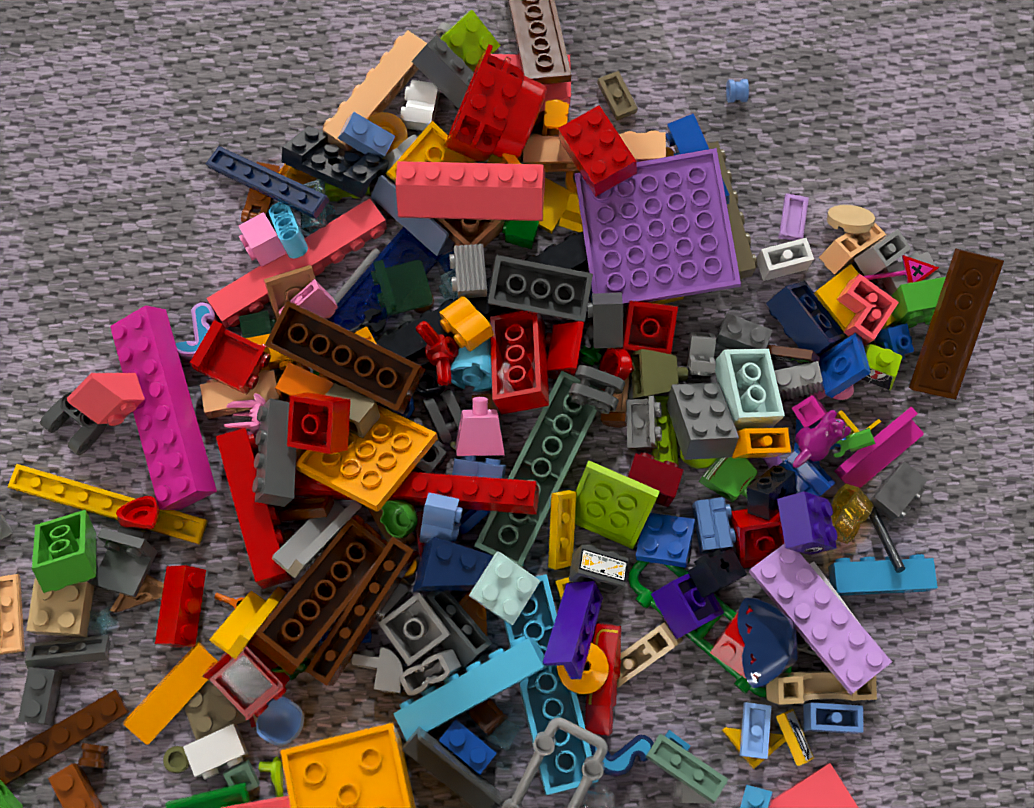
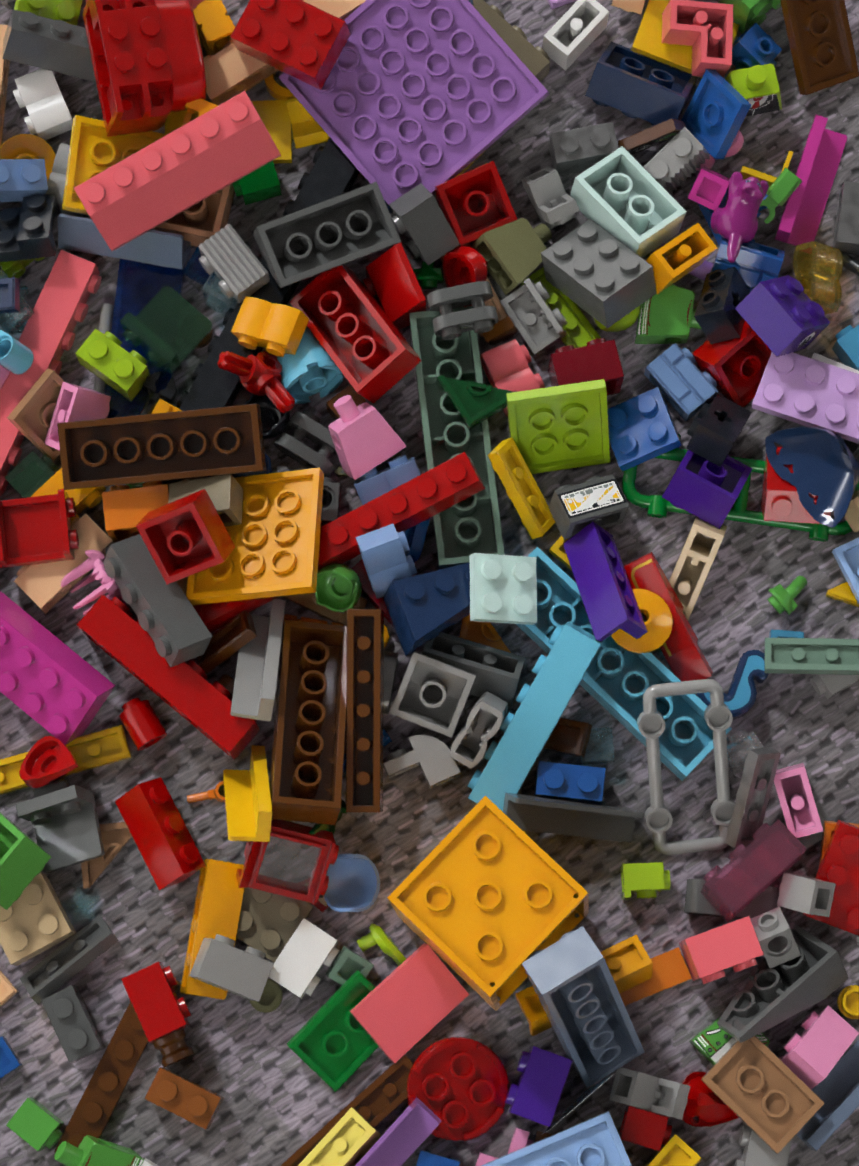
camera: 25 degrees left, 5 degrees up
(100, 717) = (156, 1001): none -> red brick
(163, 727) = (231, 968): none -> light grey brick
(219, 527) = (142, 723): none -> red brick
(353, 288) = (113, 364): none -> lime brick
(566, 452) = (473, 400): none -> dark green tile
(604, 447) = (509, 368): none -> coral brick
(690, 713) = (783, 598): none -> bright green plate

